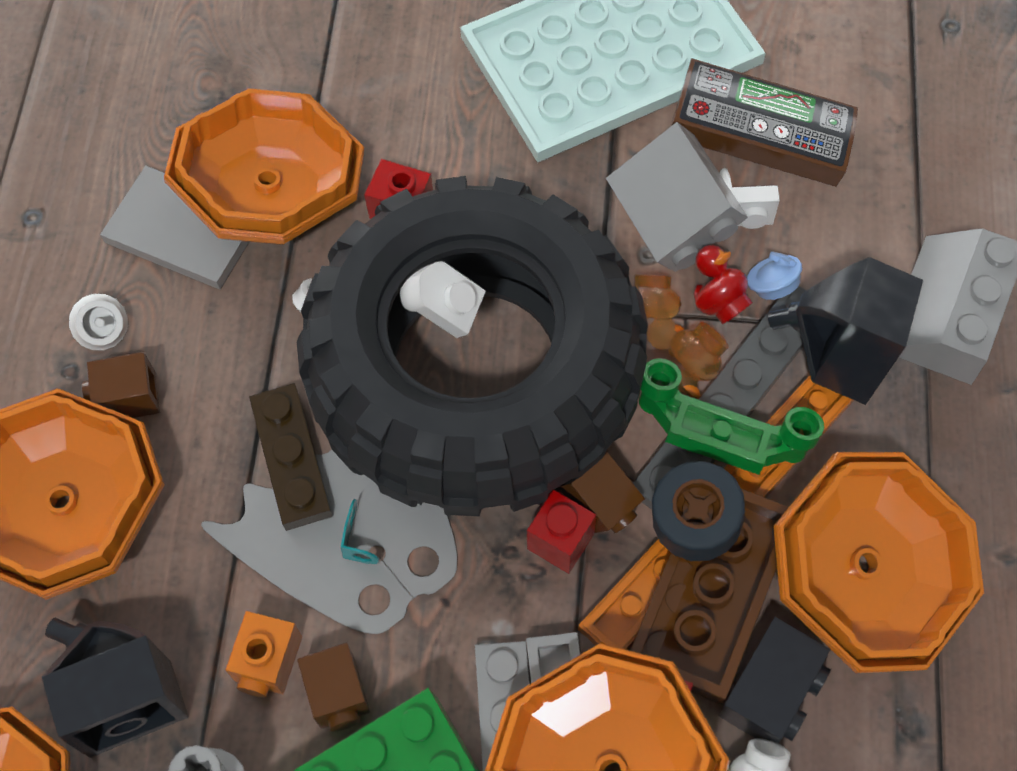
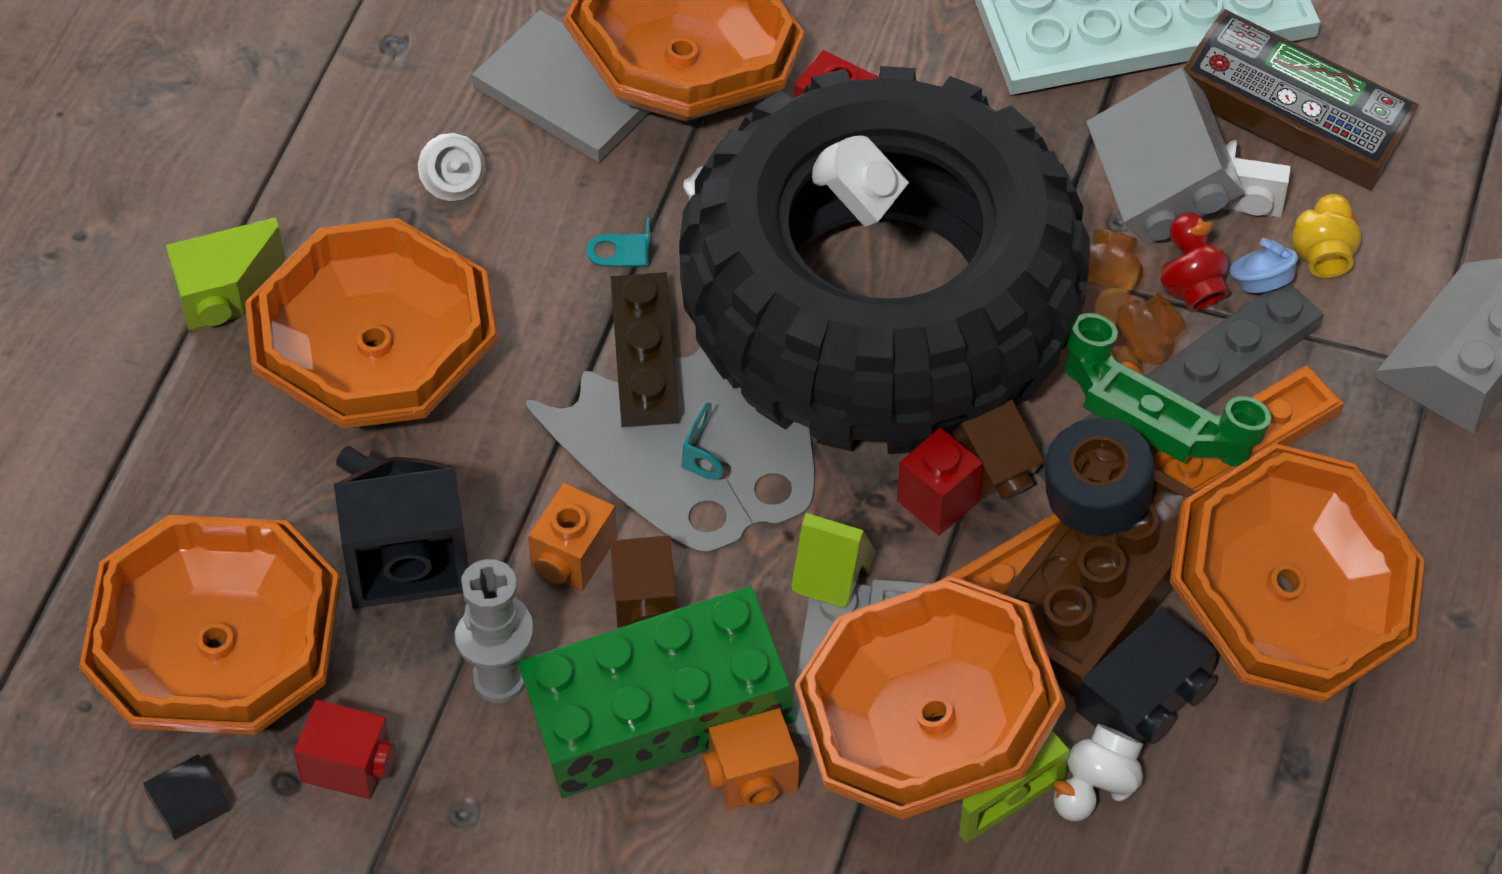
camera: 10 degrees right, 10 degrees down
(123, 385) = (471, 230): reddish brown brick -> none
(262, 364) = (631, 249): none -> teal piece
(488, 634) = (830, 560): none -> lime slope
(817, 237) = (1327, 236): none -> yellow animal
(854, 325) = (1335, 326): black piece -> none

